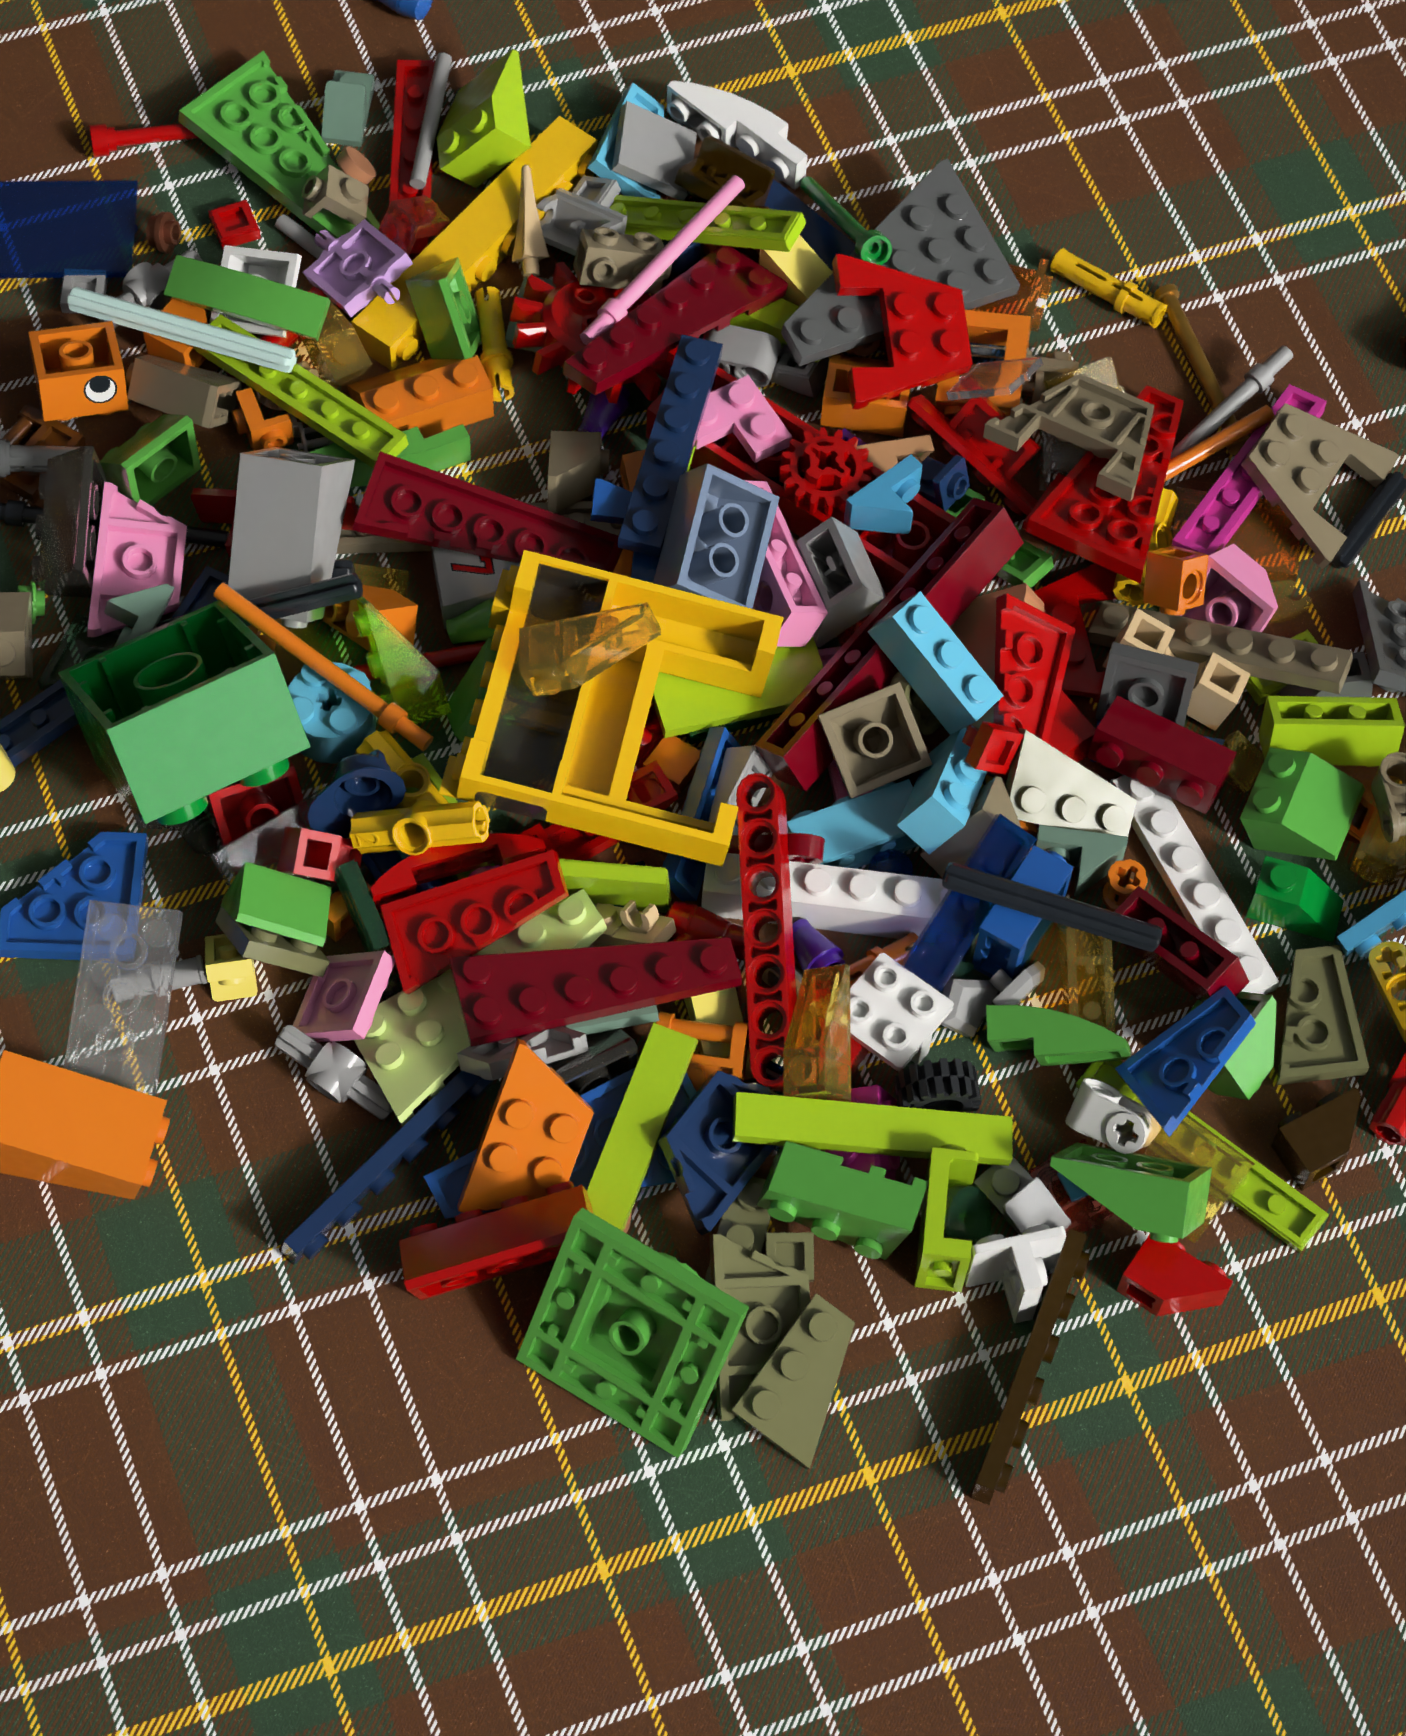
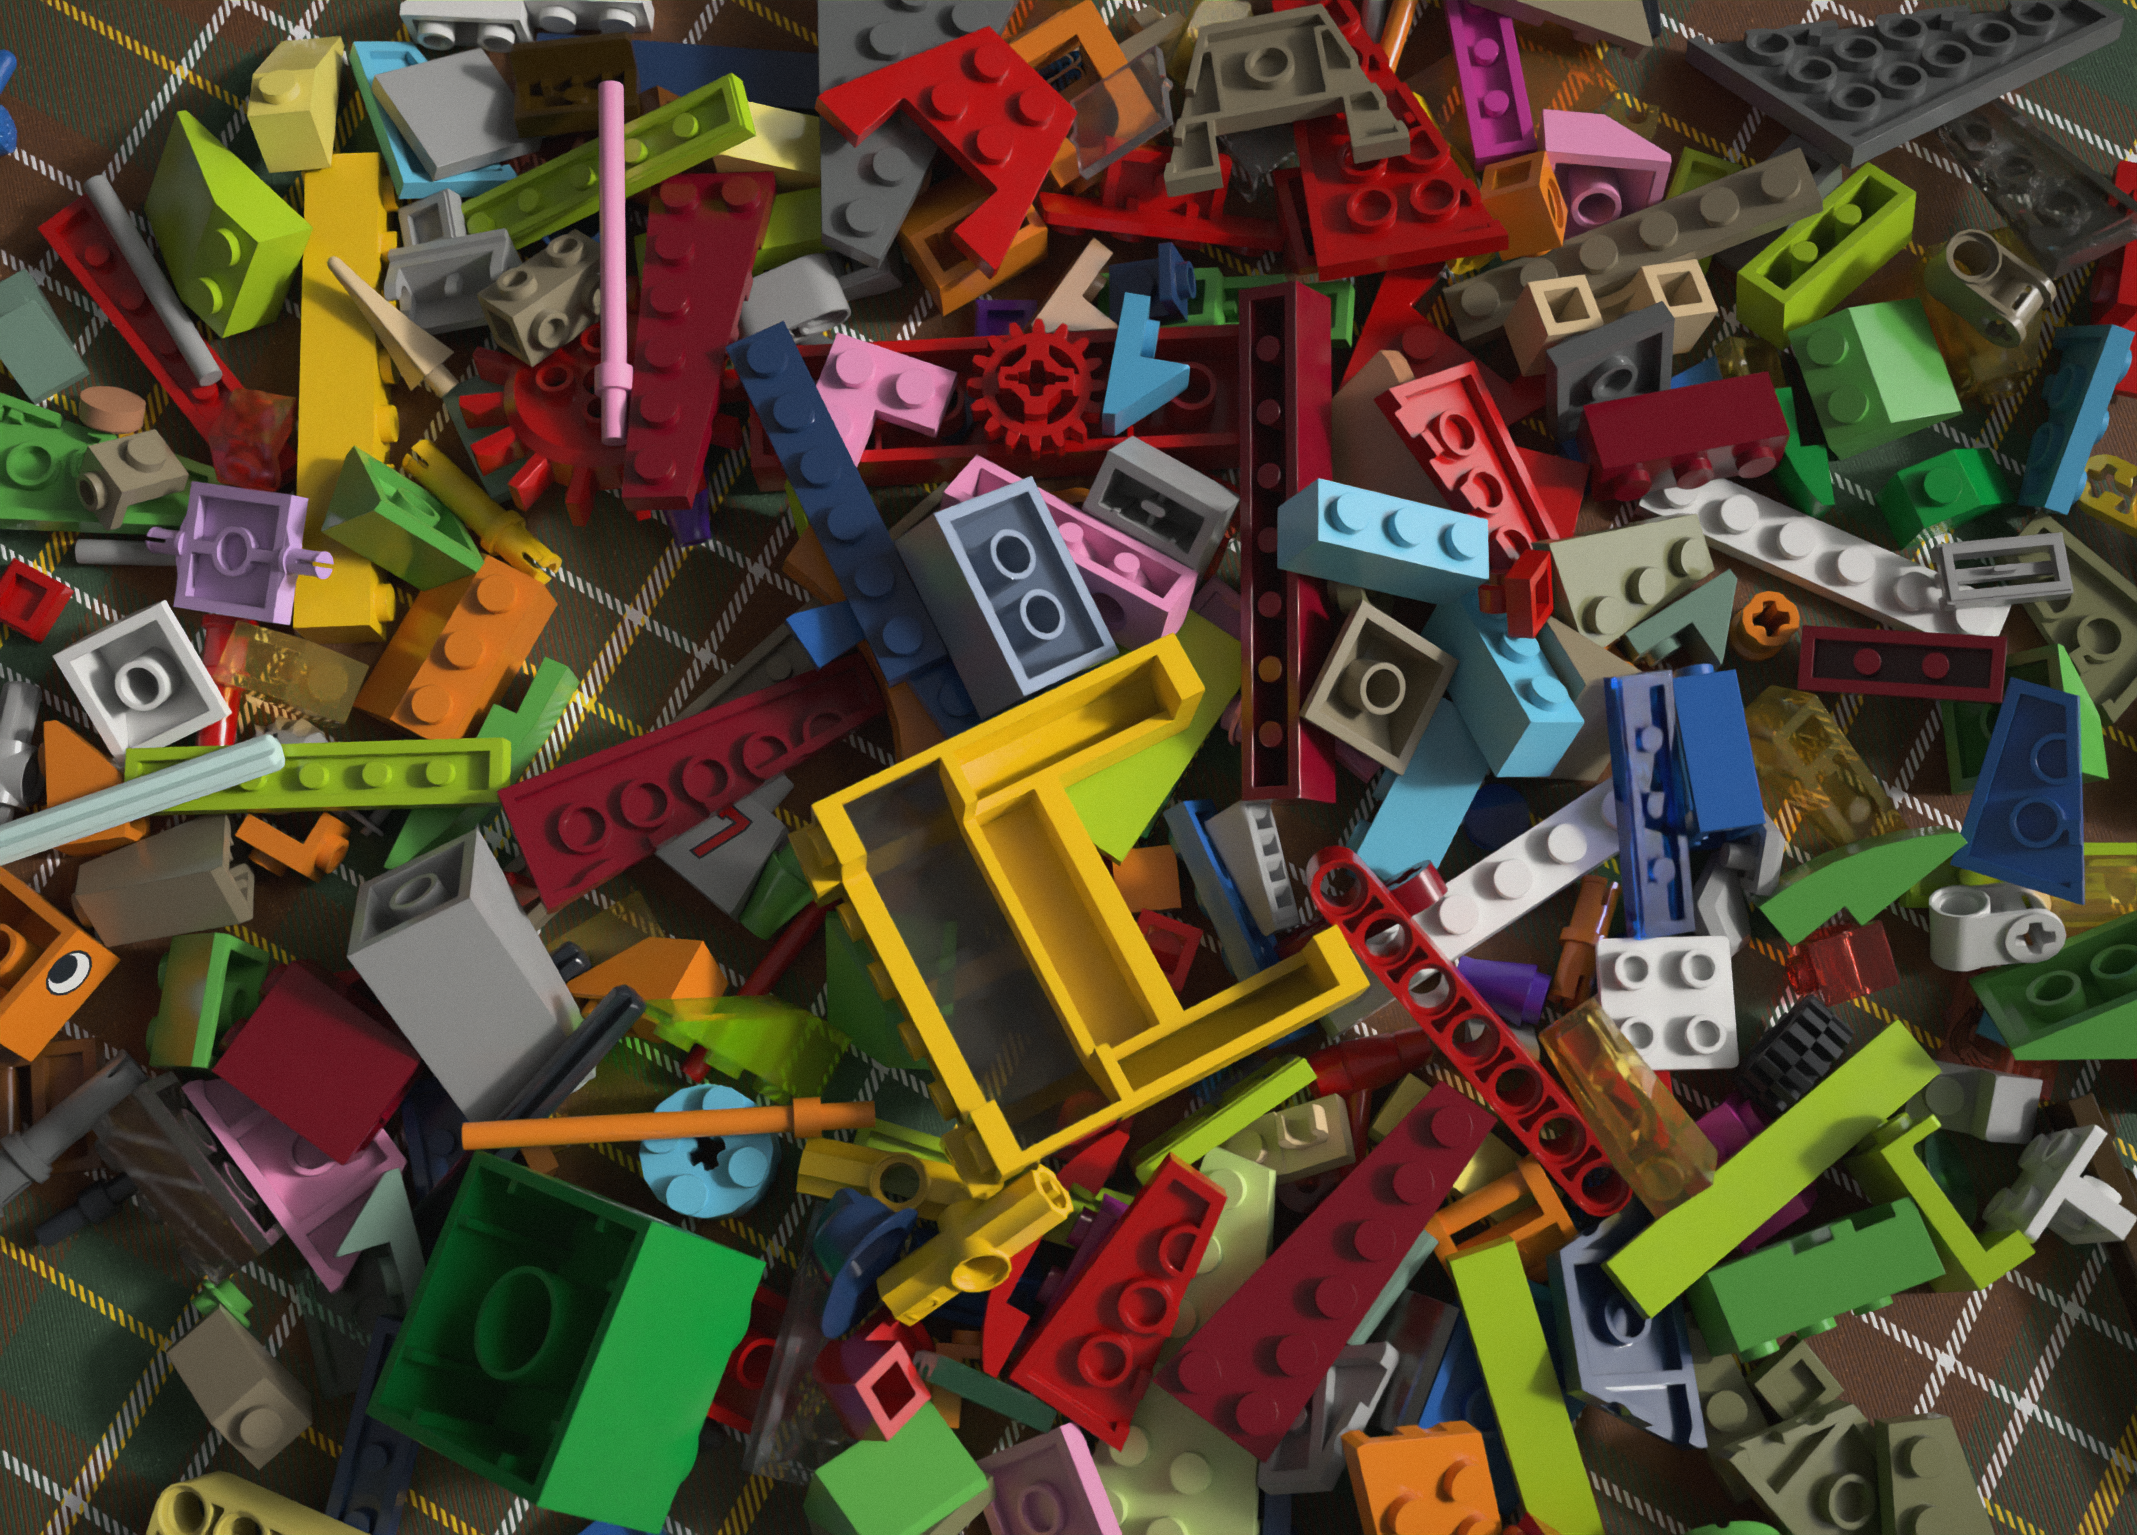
camera: 35 degrees left, 15 degrees up
(183, 515) = (321, 1059): none -> dark red brick
(247, 297) = (145, 708): bright green slope -> none
(573, 466) = (721, 604): dark tan slope -> none
(576, 88) = (297, 103): none -> light yellow slope
(577, 648) = (971, 873): clear yellow slope -> none
(869, 244) = (843, 52): green piece -> none
(1010, 1074) = (1842, 962): none -> clear red brick
(1051, 907) = (1760, 745): black axle -> none
(1222, 821) = (1803, 470): none -> green slope
(1279, 959) = (1949, 578): none -> light grey tile

